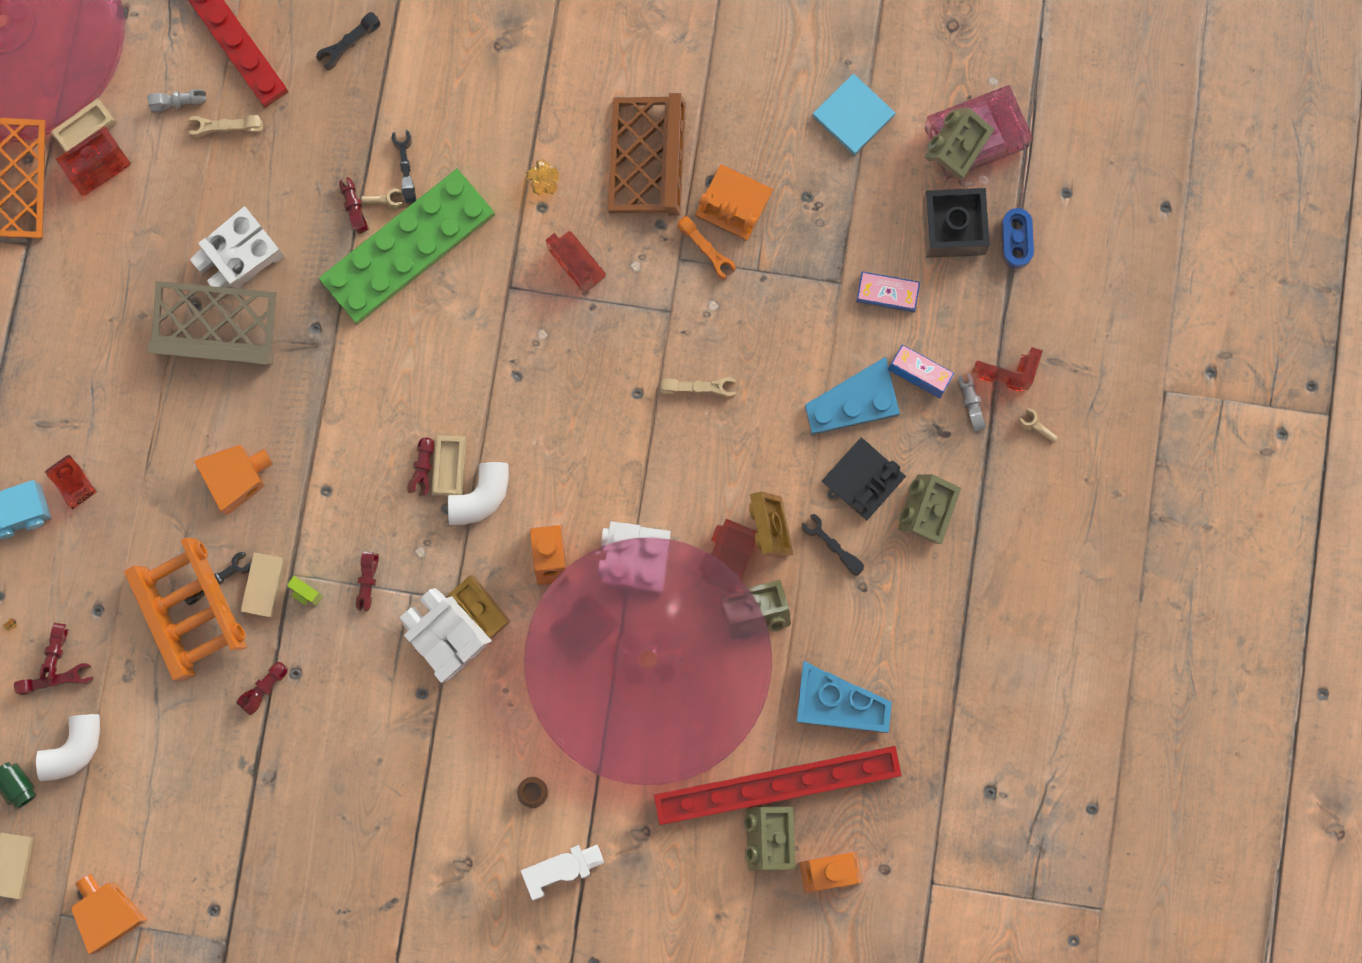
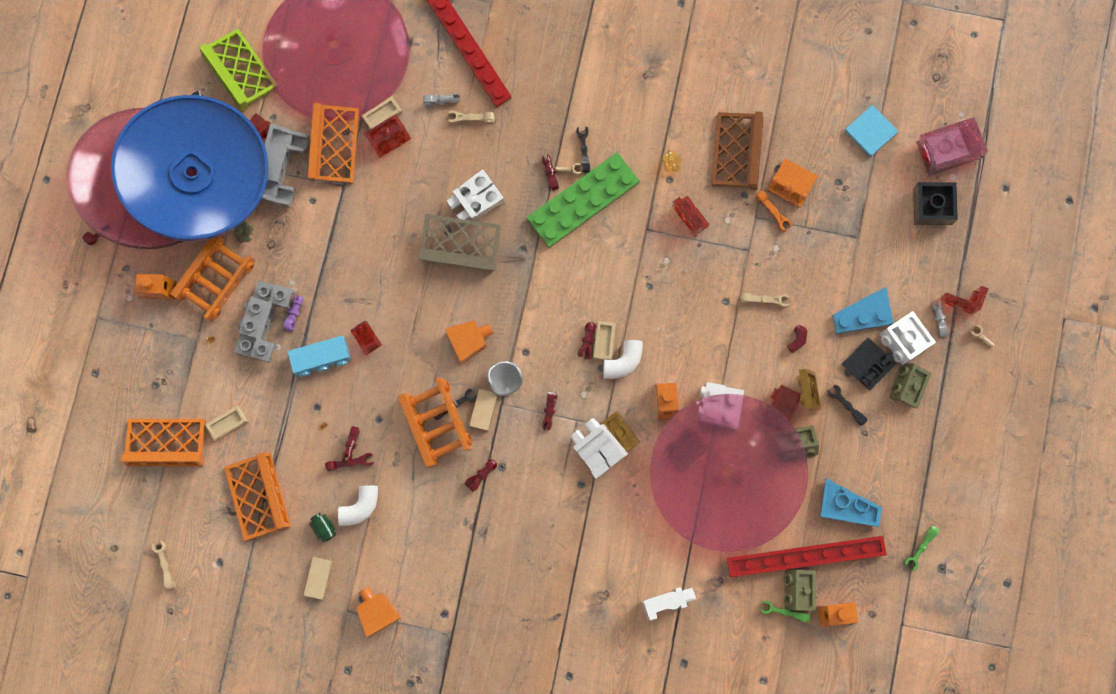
camera: 10 degrees right, 0 degrees up
(292, 533) = (505, 378): none -> light grey helmet
(303, 592) = (510, 416): lime plate -> none
(367, 25) = (563, 58): black piece -> none
(532, 792) = (649, 551): reddish brown plate -> none
(756, 445) = (801, 337): none -> dark red arm
(771, 879) = (797, 615): none -> bright green piece
(888, 291) = (888, 245): bright pink tile -> none
(920, 435) = (906, 338): none -> white plate
(921, 371) = (908, 297): tile -> none
(959, 141) = (941, 151): olive bracket -> none
(969, 741) = (930, 535): none -> bright green piece
(1017, 239) = (973, 216): blue plate -> none

